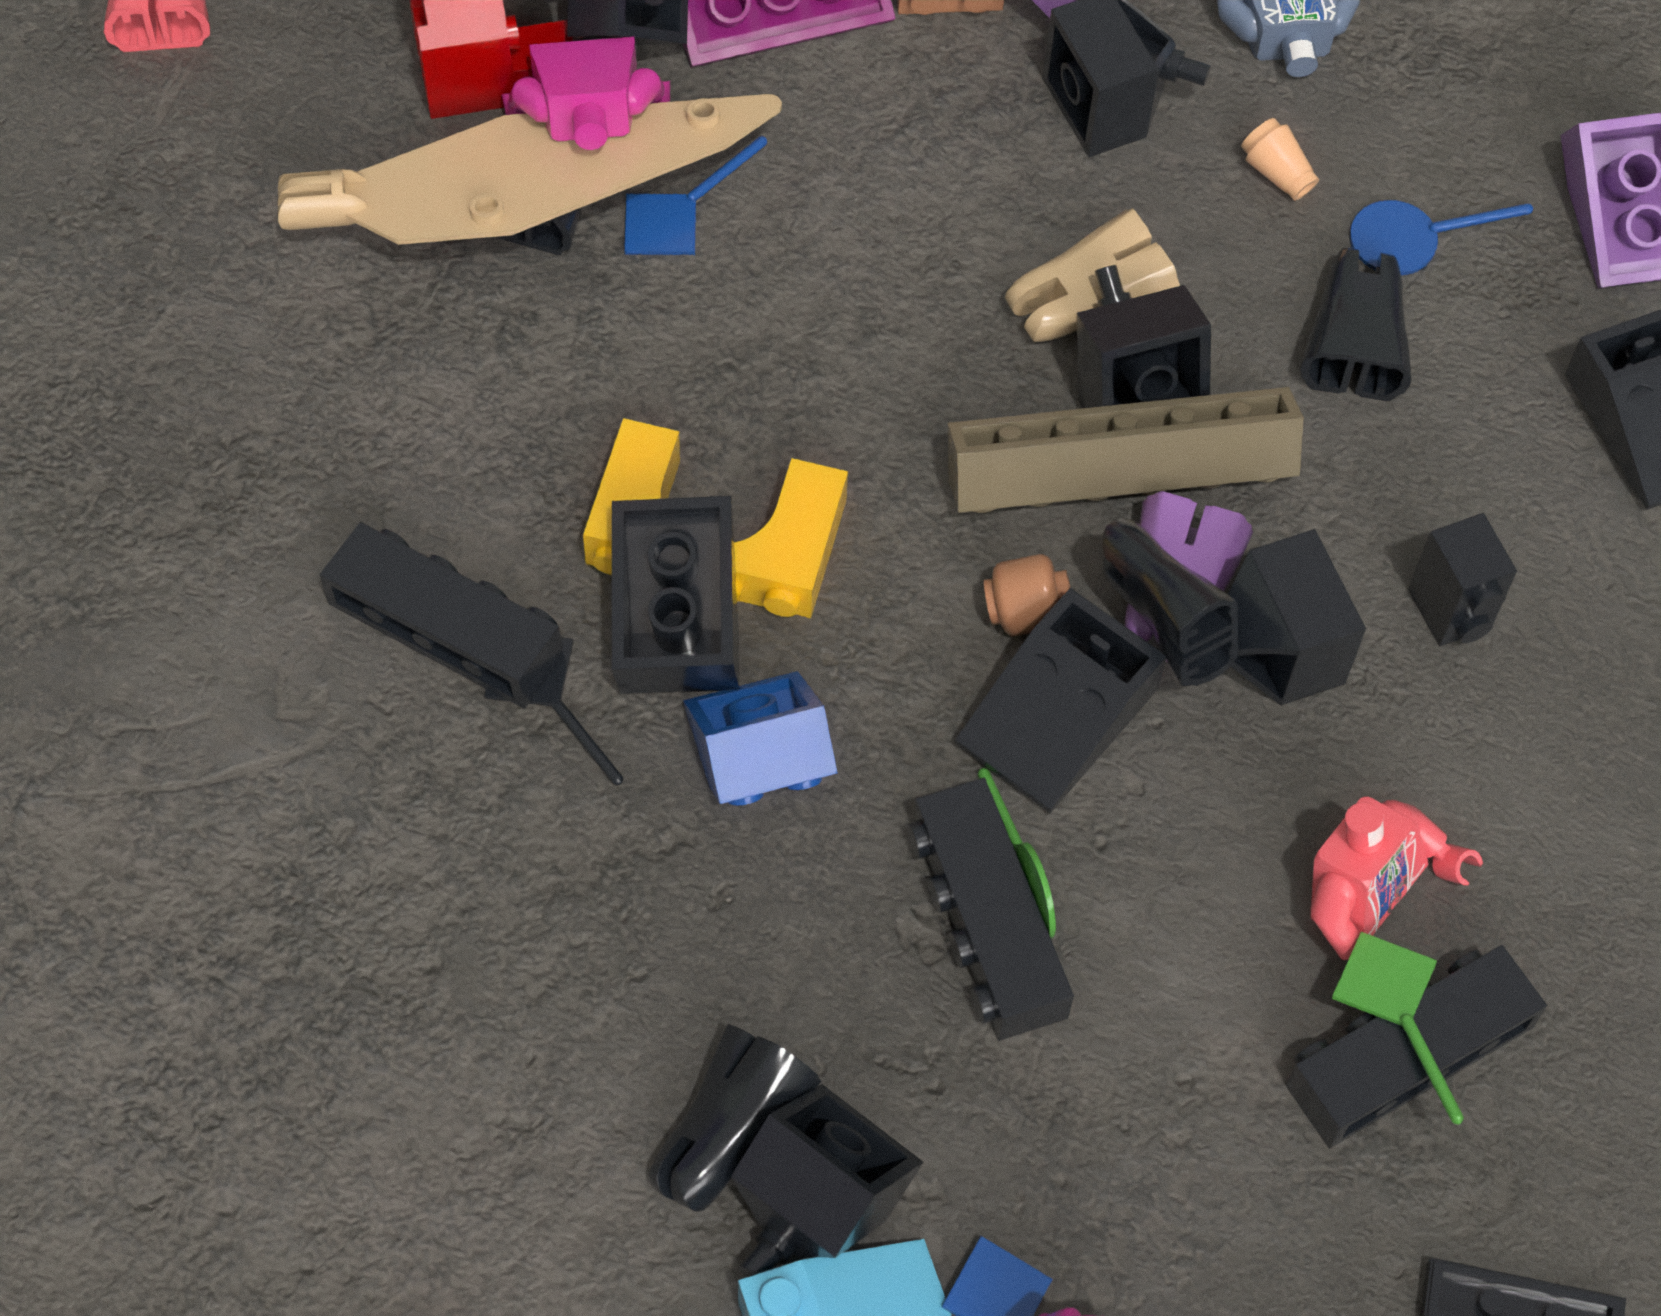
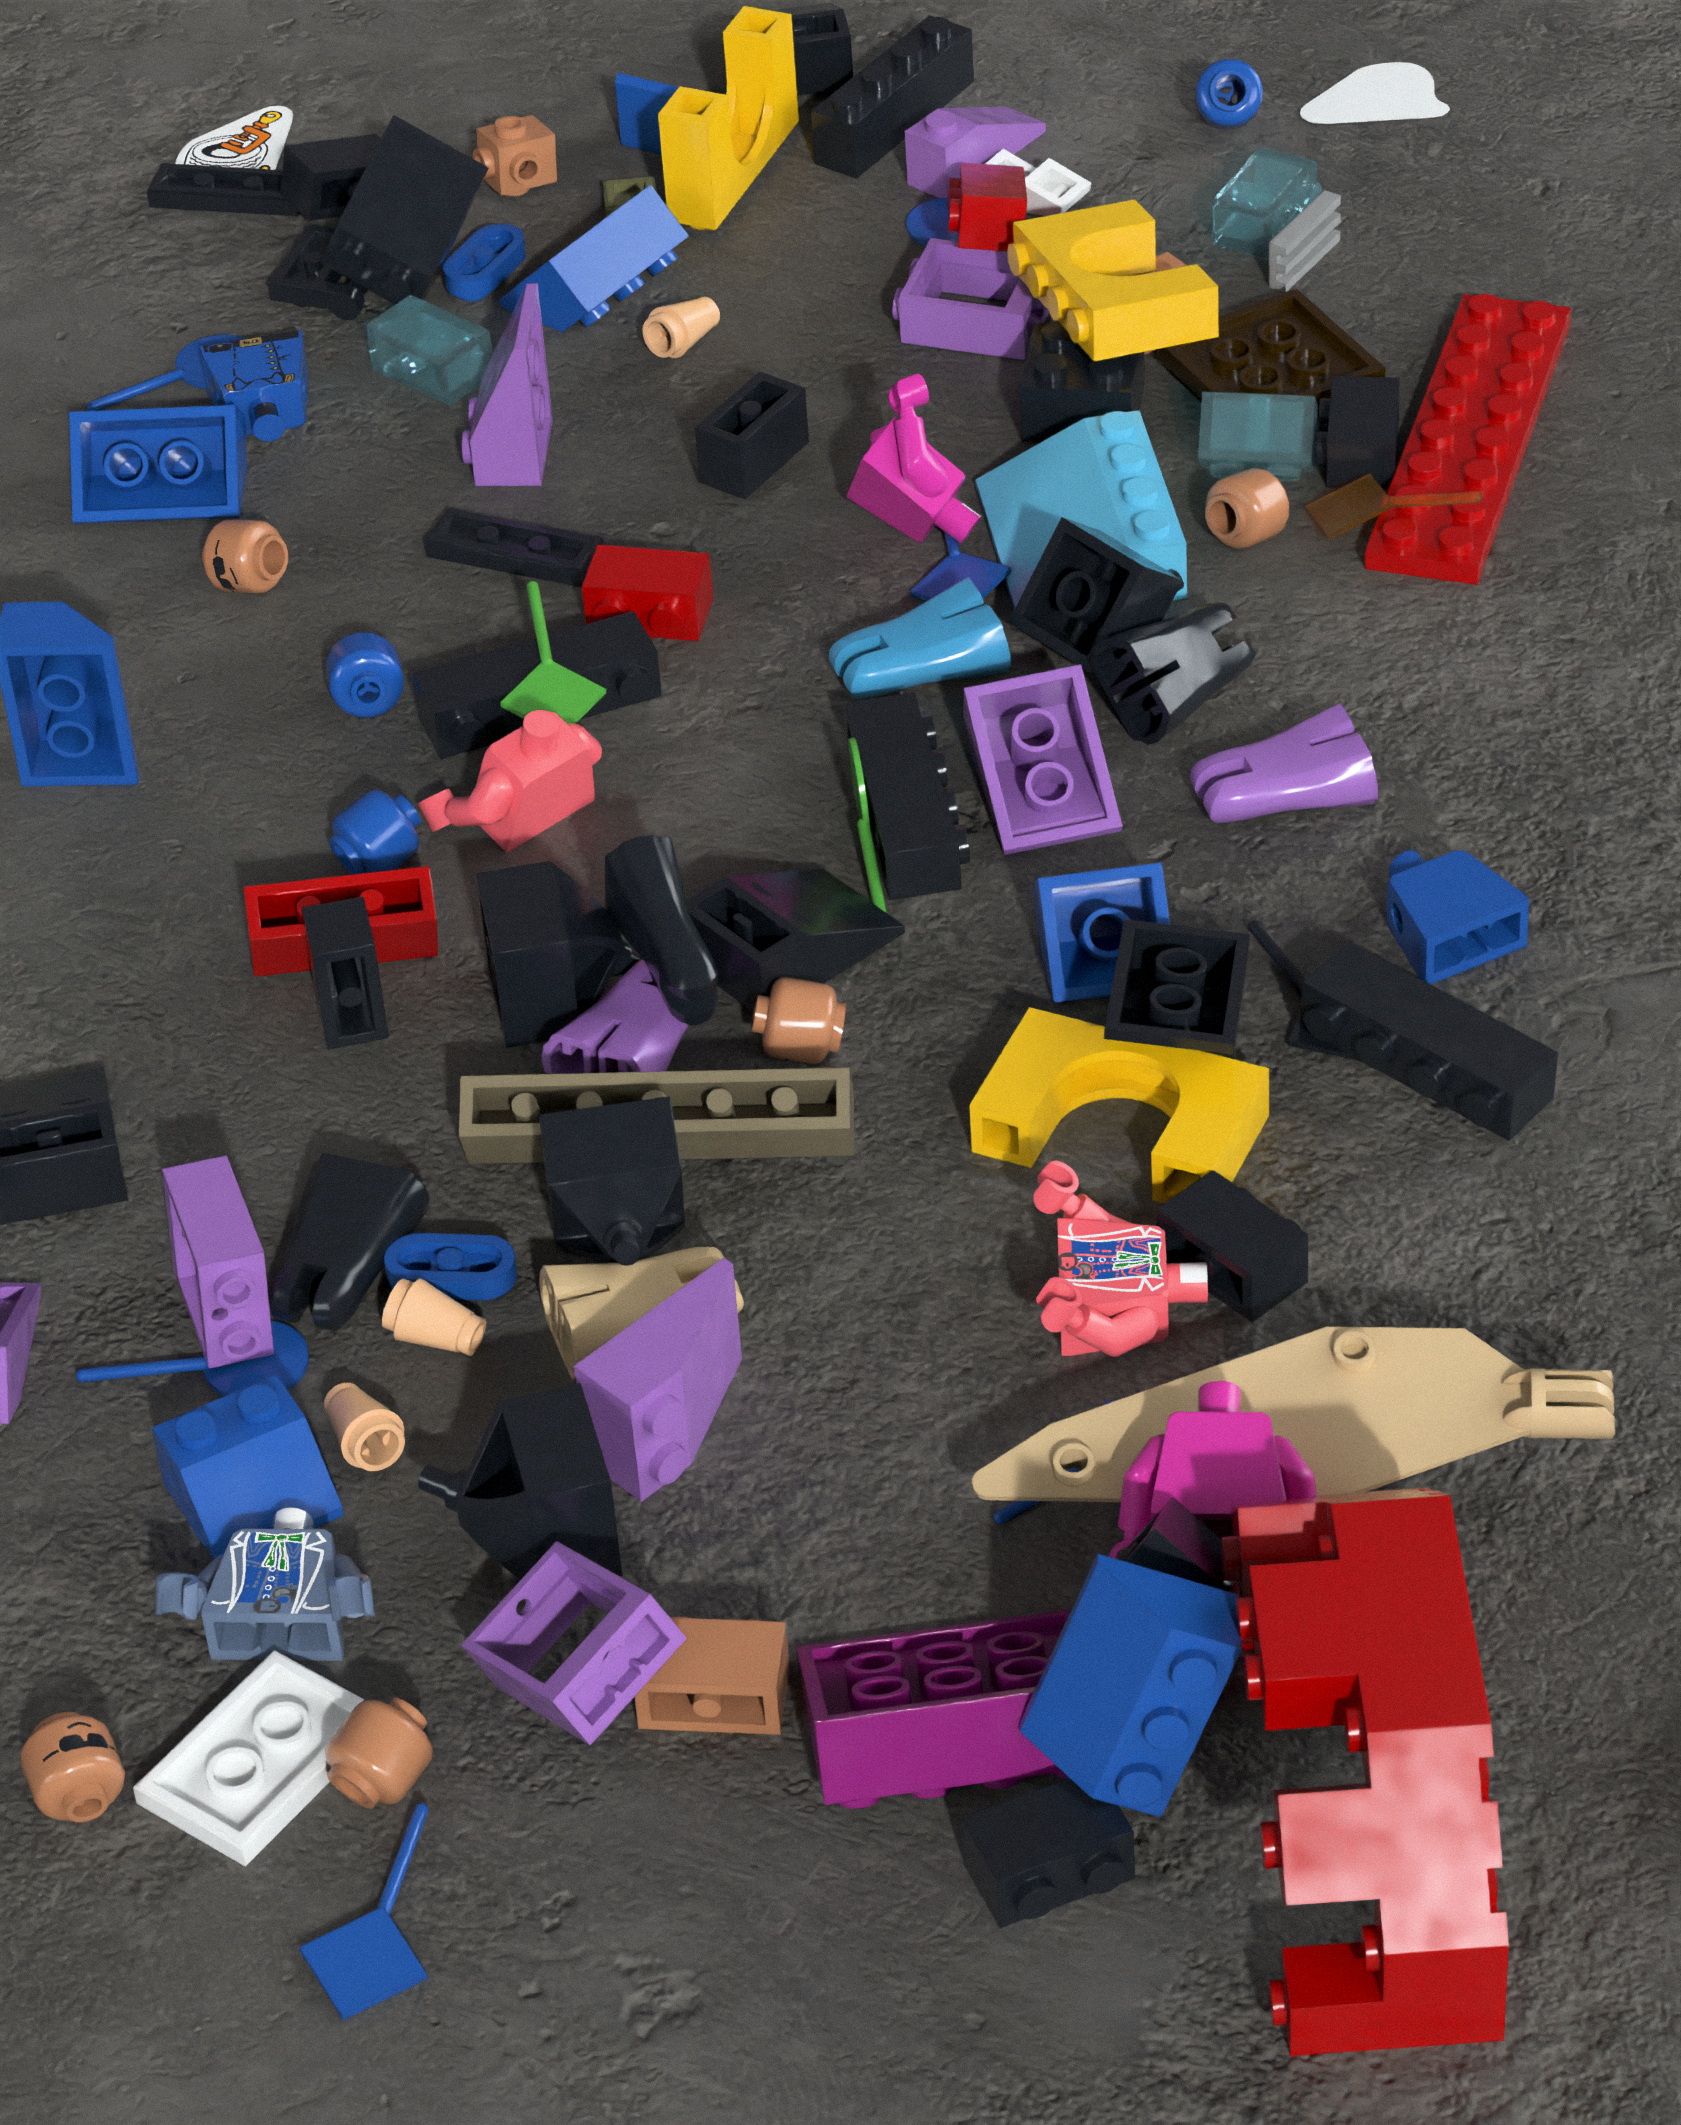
camera: 165 degrees left, 20 degrees down
(425, 787) = (1452, 913): none -> blue torso
(596, 976) = (1297, 769): none -> medium lavender piece
(600, 377) = (1248, 1248): none -> black brick
(701, 324) = (1110, 1274): none -> coral torso
(858, 968) = (1040, 759): none -> medium lavender slope
(1010, 1148) = (934, 642): none -> dark azure piece
(1053, 163) = (664, 1381): none -> medium lavender slope
(1258, 313) = (454, 1264): none -> blue plate
(1259, 261) = (431, 1318): none -> light nougat cone
(1341, 1209) = (663, 588): none -> red brick
(1357, 108) = (243, 1463): none -> blue slope
(1448, 247) = (218, 1261): none -> medium lavender window
(1492, 660) = (397, 907): none -> red brick
(1510, 802) = (375, 833): none -> blue head
(1606, 1041) = (364, 675): none -> blue head

